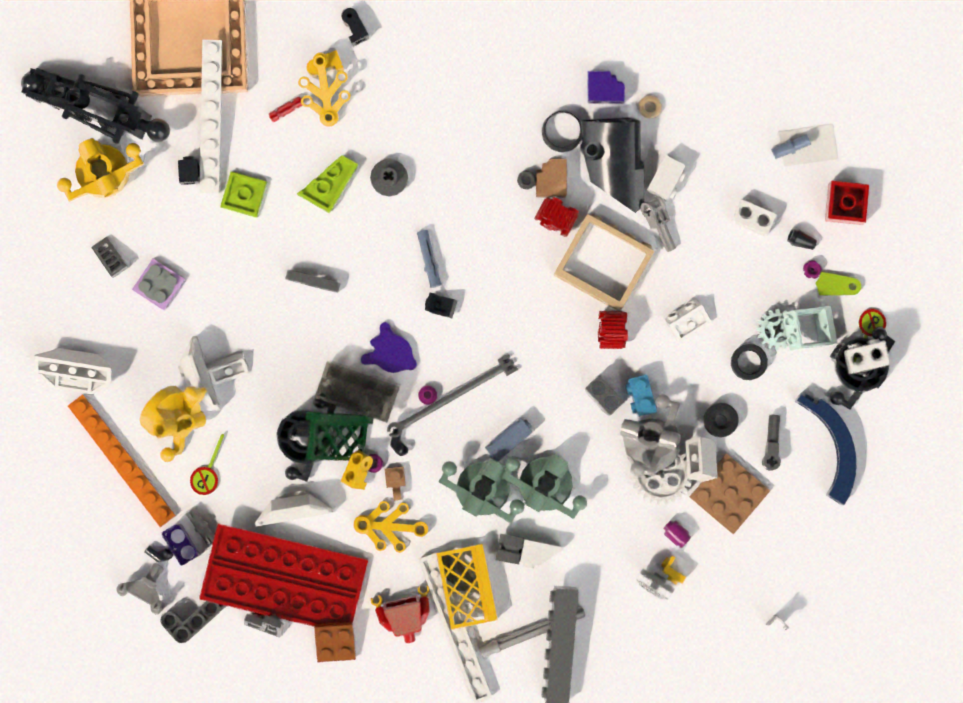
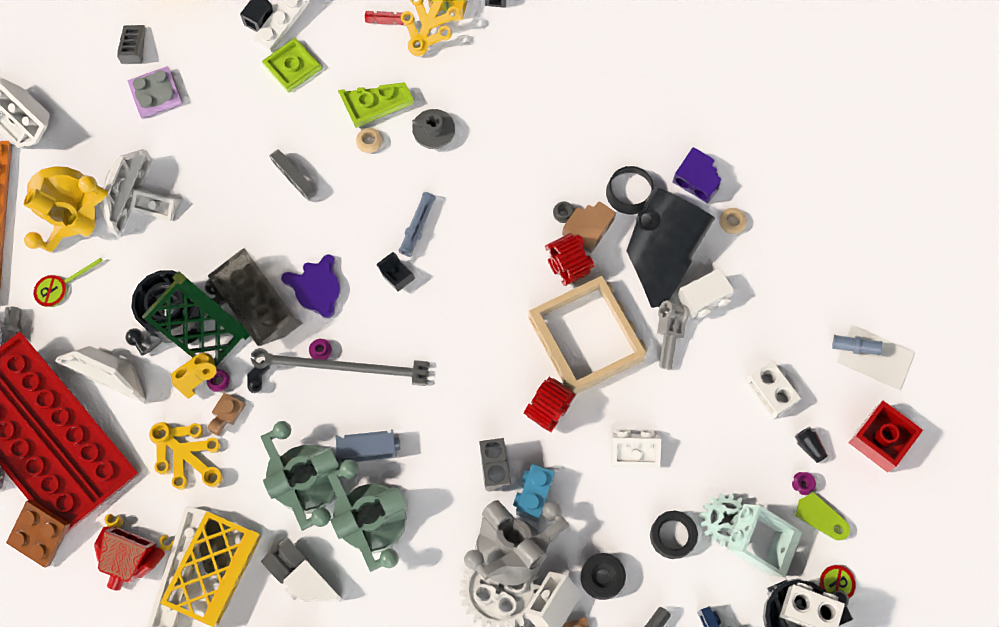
camera: 35 degrees right, 15 degrees down
(352, 223) = (369, 132): none -> tan piece

